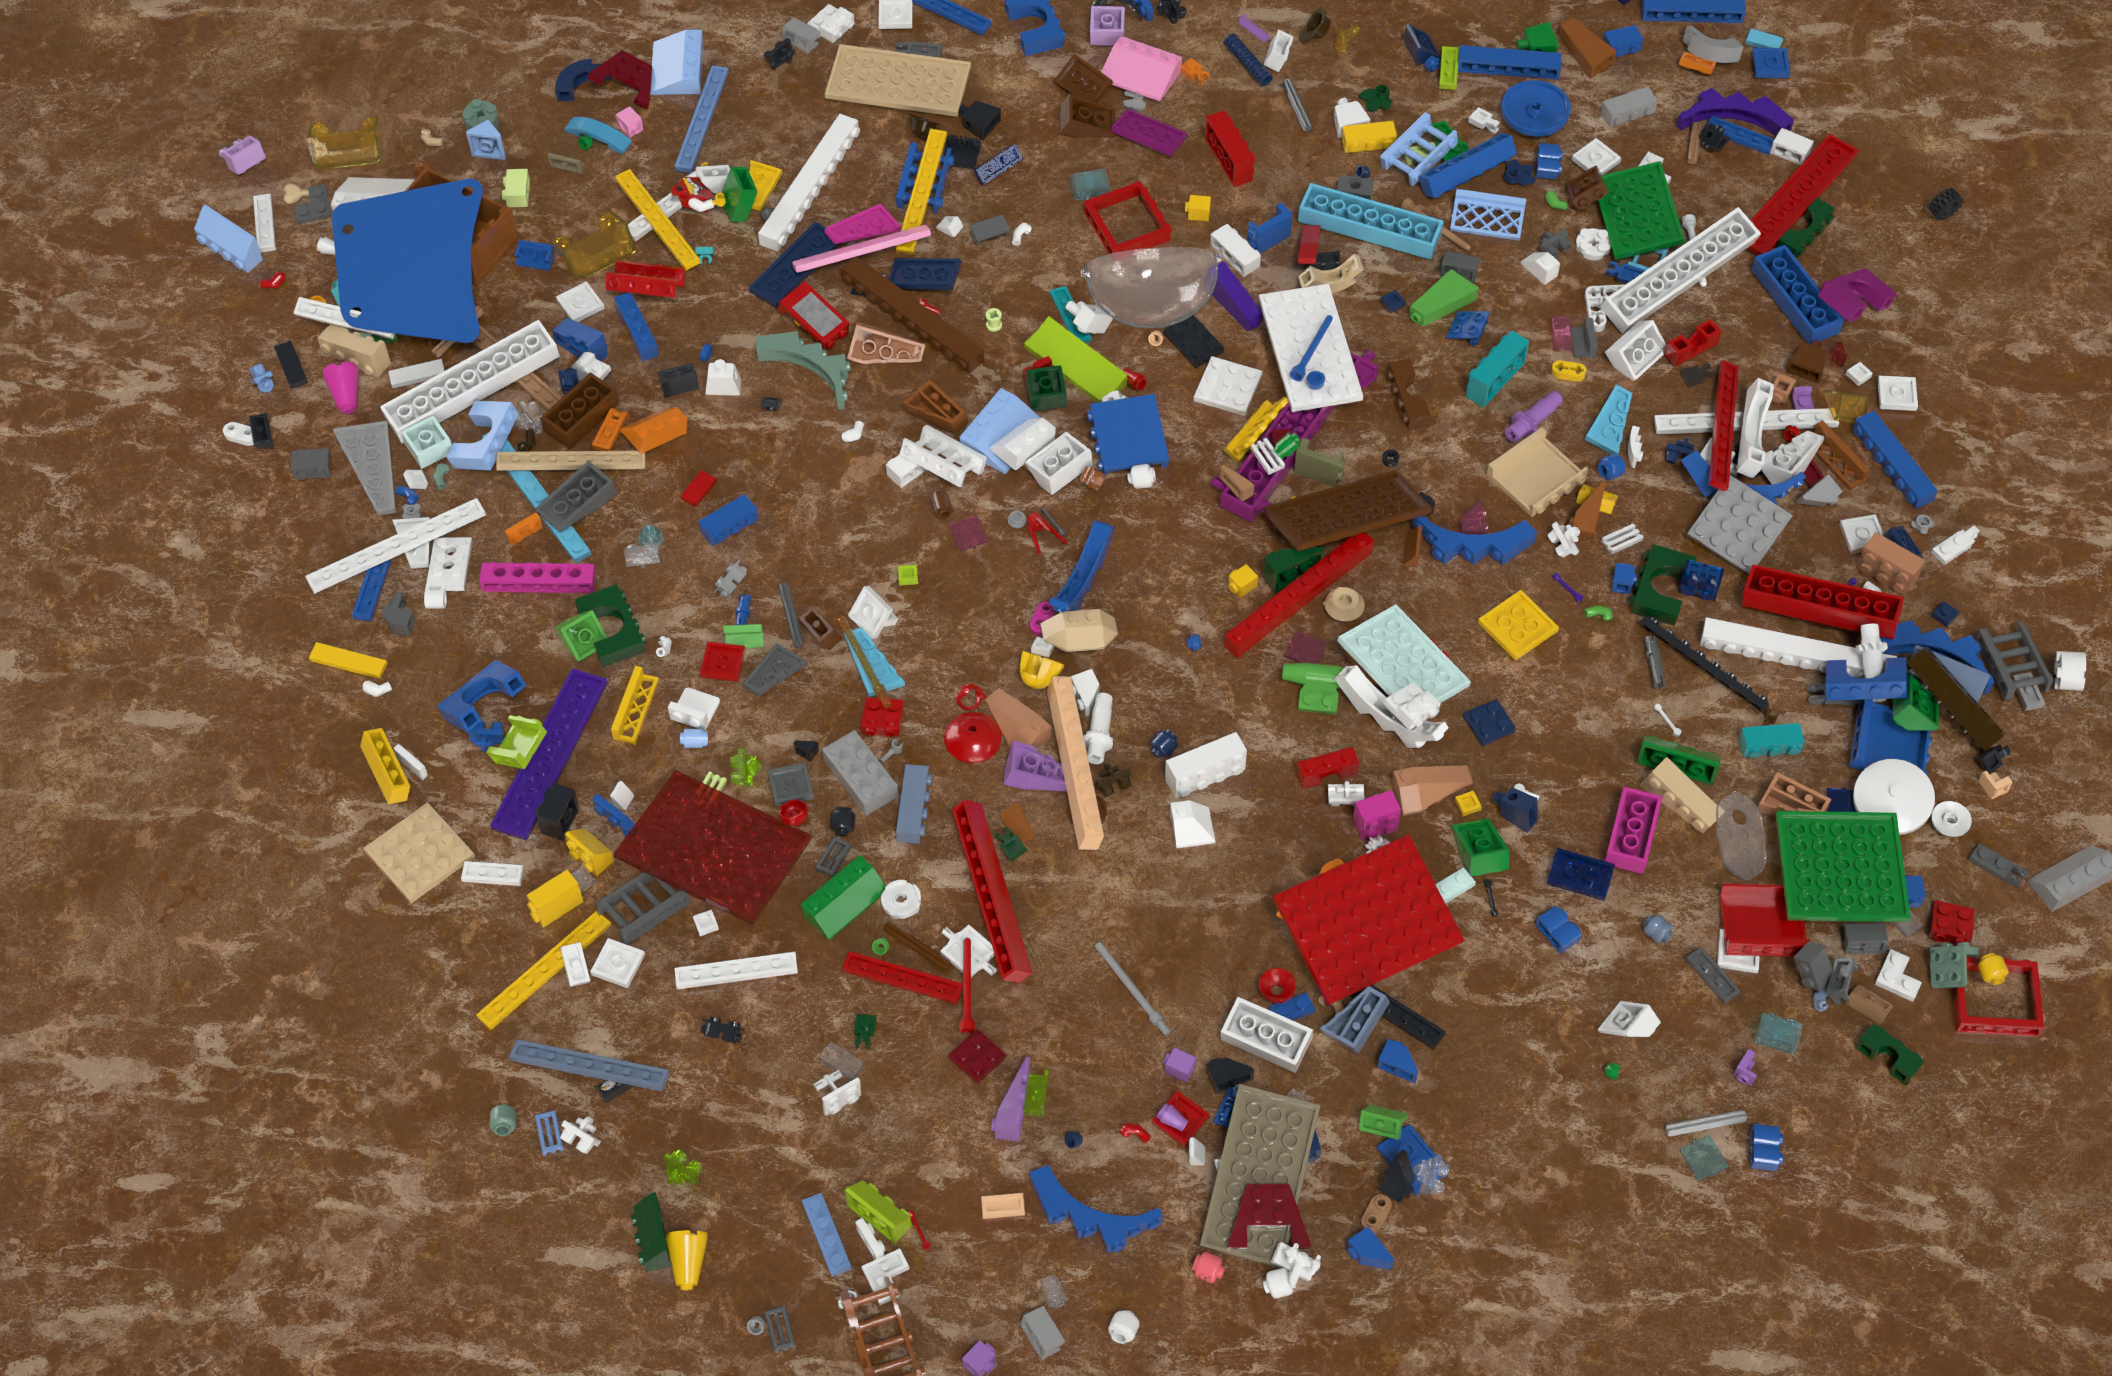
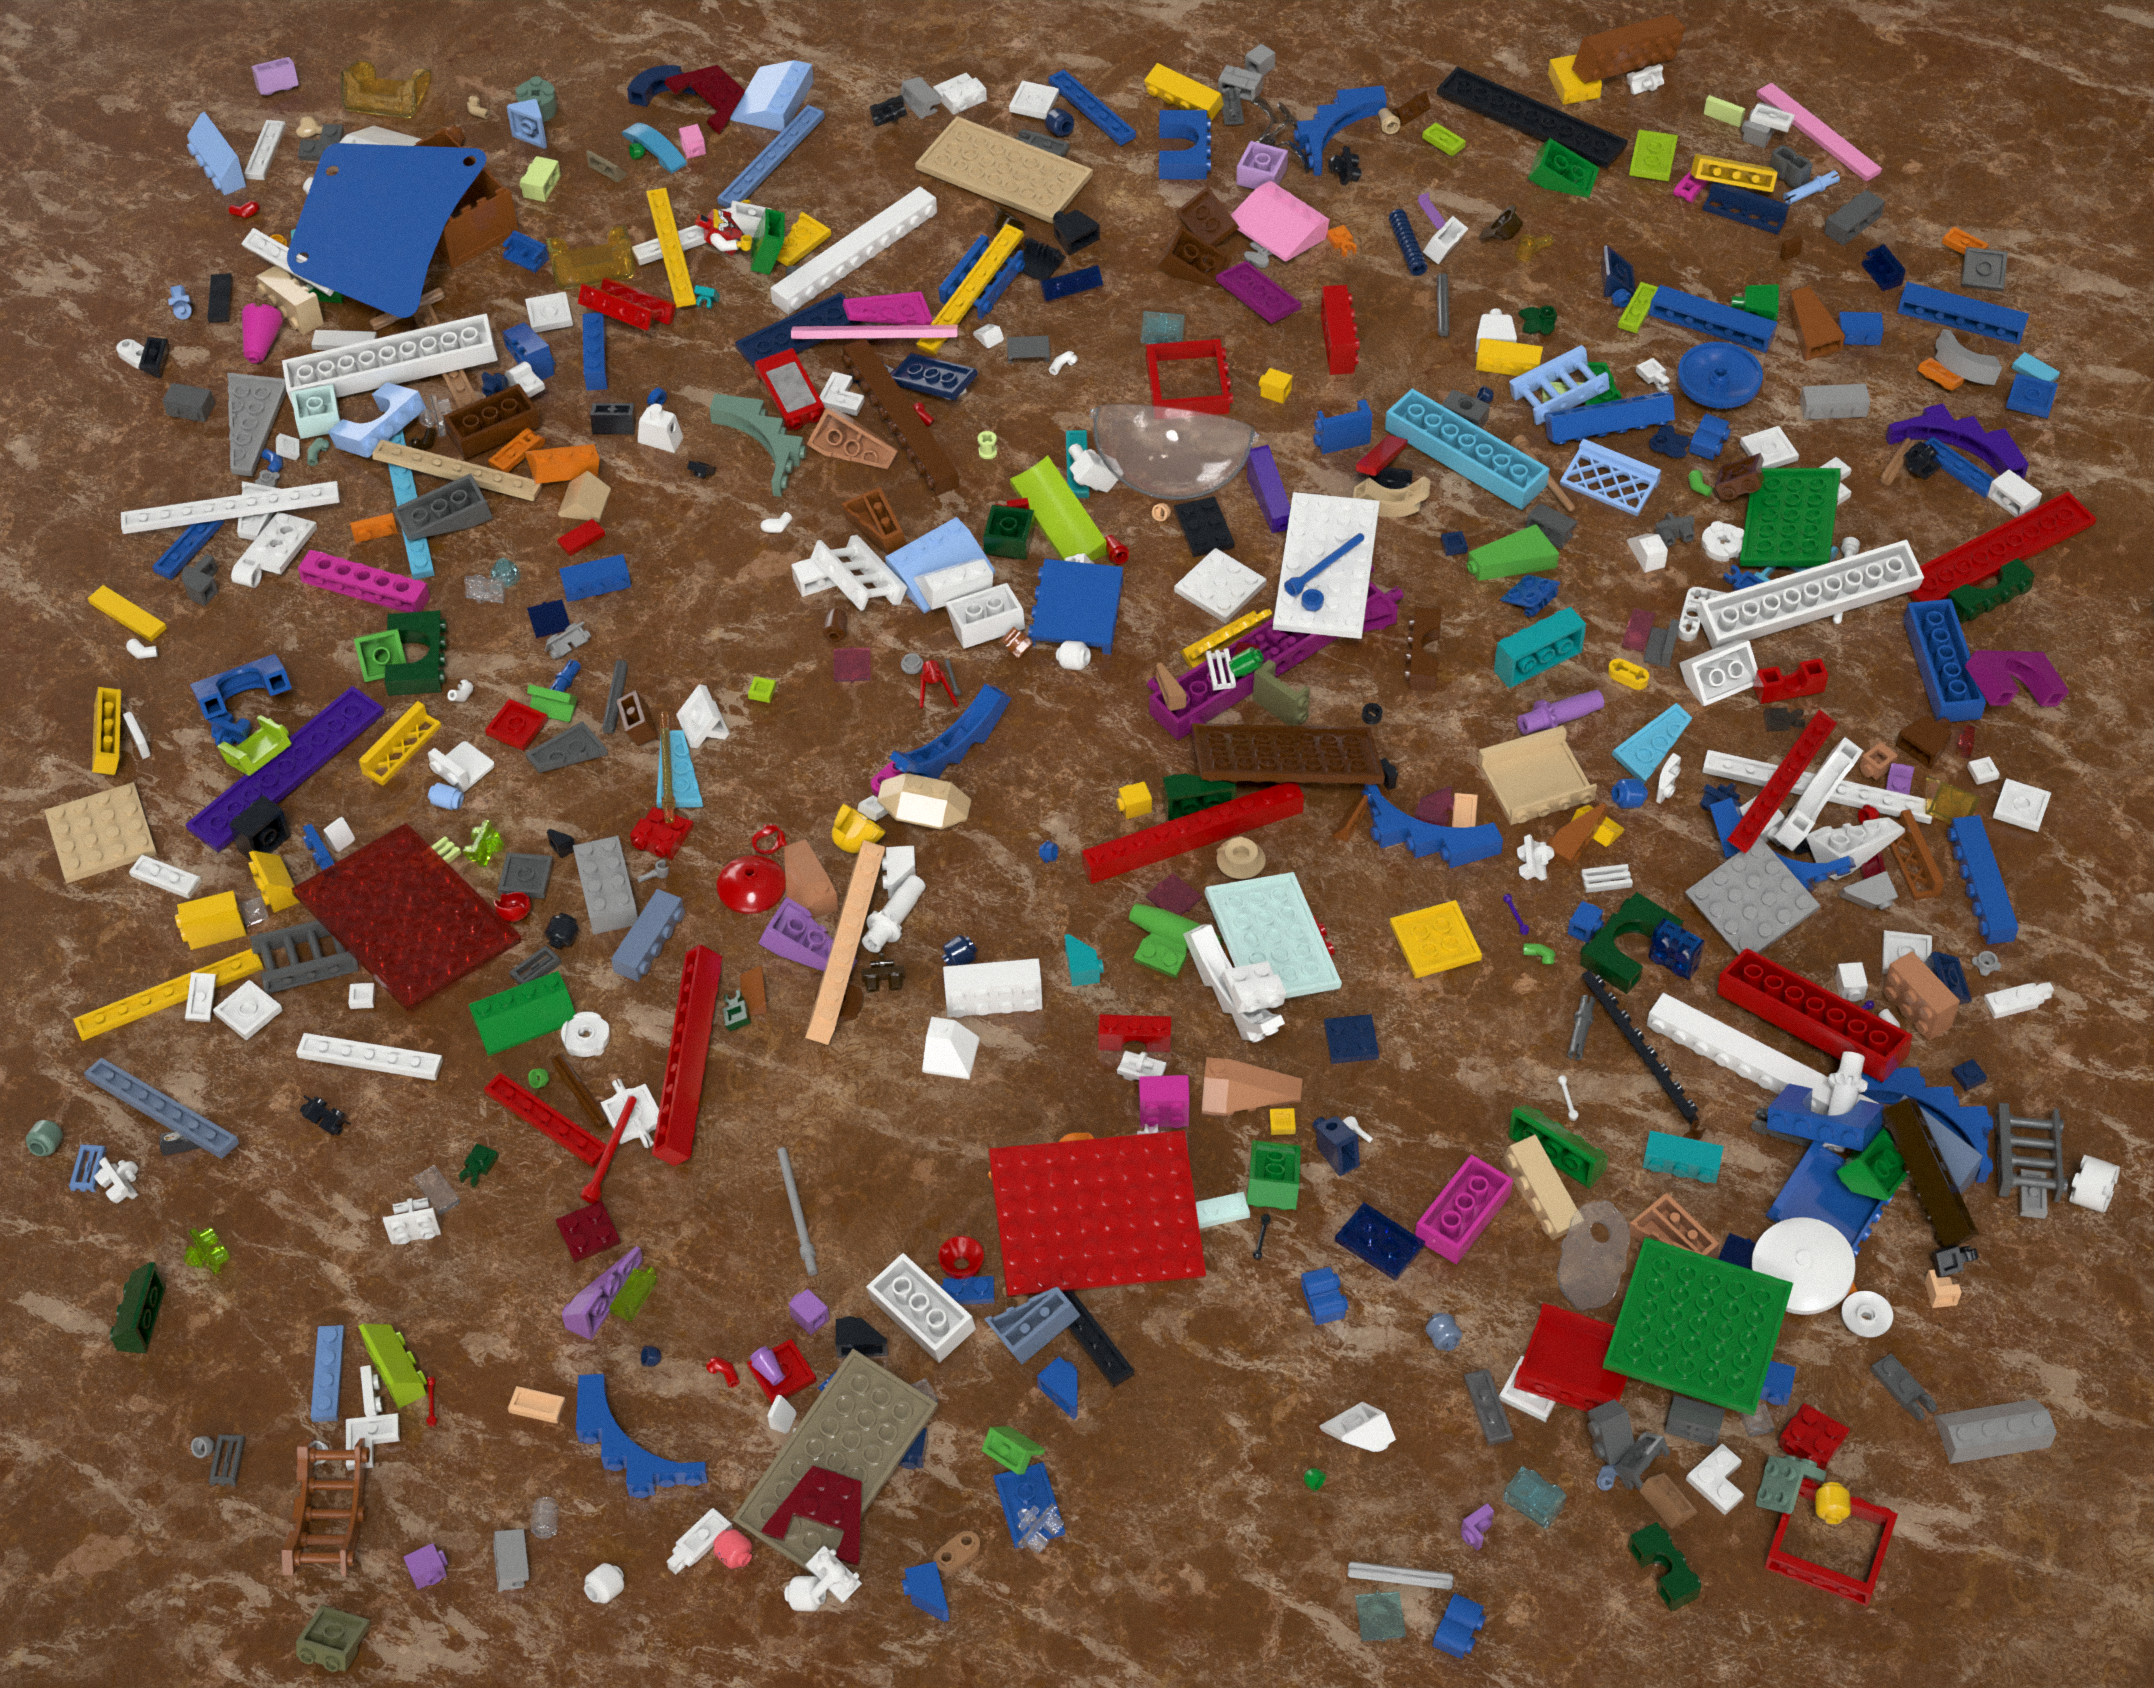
camera: 20 degrees right, 5 degrees down
(686, 454) = (585, 498): none -> tan slope
(686, 1256) = (162, 1346): yellow cone -> none
(704, 564) = (548, 618): none -> clear blue piece
(853, 312) = (836, 394): none -> white plate
(926, 28) = (1059, 122): none -> dark blue head
(1179, 1269) = (697, 1540): none -> white hinge
(1235, 250) = (1296, 441): white brick -> none
(1260, 723) = (1082, 962): none -> teal slope
(1399, 1178) = (997, 1517): black slope -> none
(1495, 517) = (1464, 810): none -> light nougat tile
(1834, 567) = (1851, 981): none -> white brick

